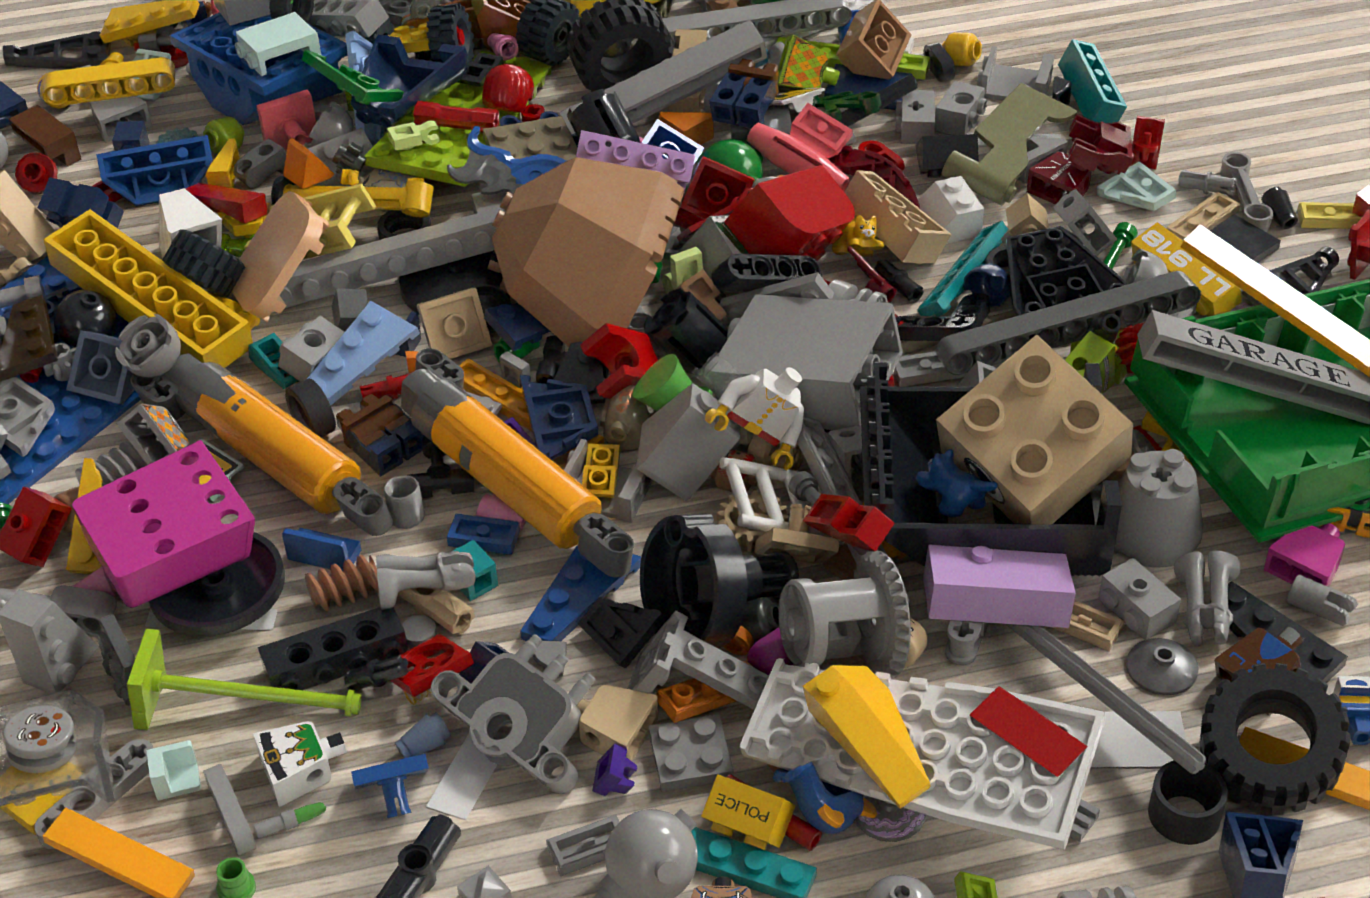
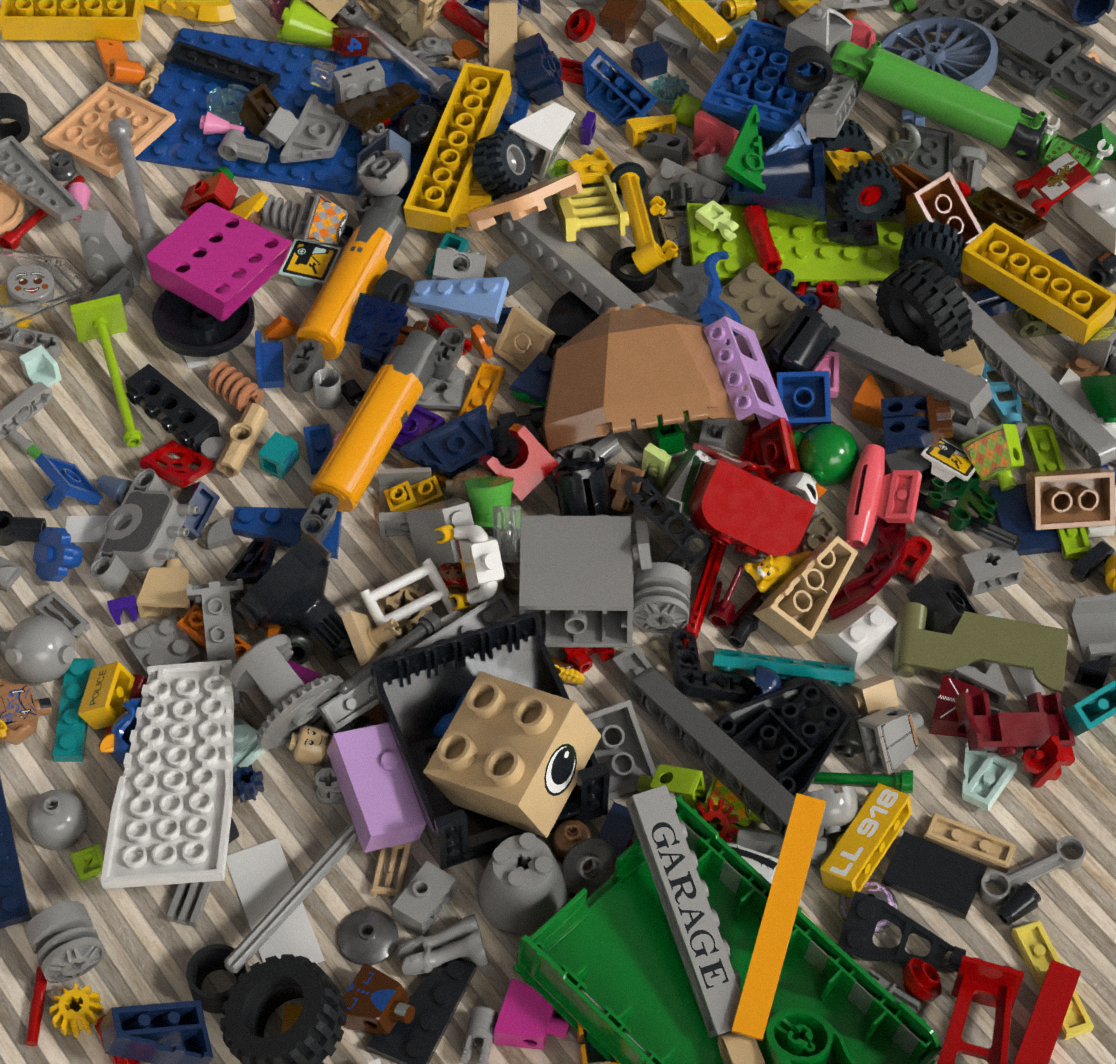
camera: 65 degrees right, 10 degrees up
(236, 203) = (597, 145): red slope -> none
(274, 39) = (757, 82): light aqua panel -> none
(278, 521) = (281, 328): none -> orange tile
(296, 759) = (70, 427): white torso -> none
(303, 166) = (649, 173): orange slope -> none
(354, 422) = (376, 323): none -> clear blue hinge
(376, 673) = (155, 437): black axle -> none
(443, 571) = (242, 436): light grey piece -> none
(501, 815) = (55, 554): none -> blue plant
(503, 45) = (895, 232): bright pink cone -> none
(507, 88) = (827, 258): red piece -> none
(513, 367) = (500, 400): light grey tile -> none
(848, 521) = (363, 652): red slope -> none
(868, 726) = (174, 723): yellow wedge -> none
(960, 108) = (1022, 598): light grey brick -> none
(1028, 731) = (193, 831): red sticker -> none
(1106, 327) = (712, 783): black cone -> none
(1207, 182) = (1026, 834): light grey axle -> none
(1341, 277) = (921, 980): none -> red plate

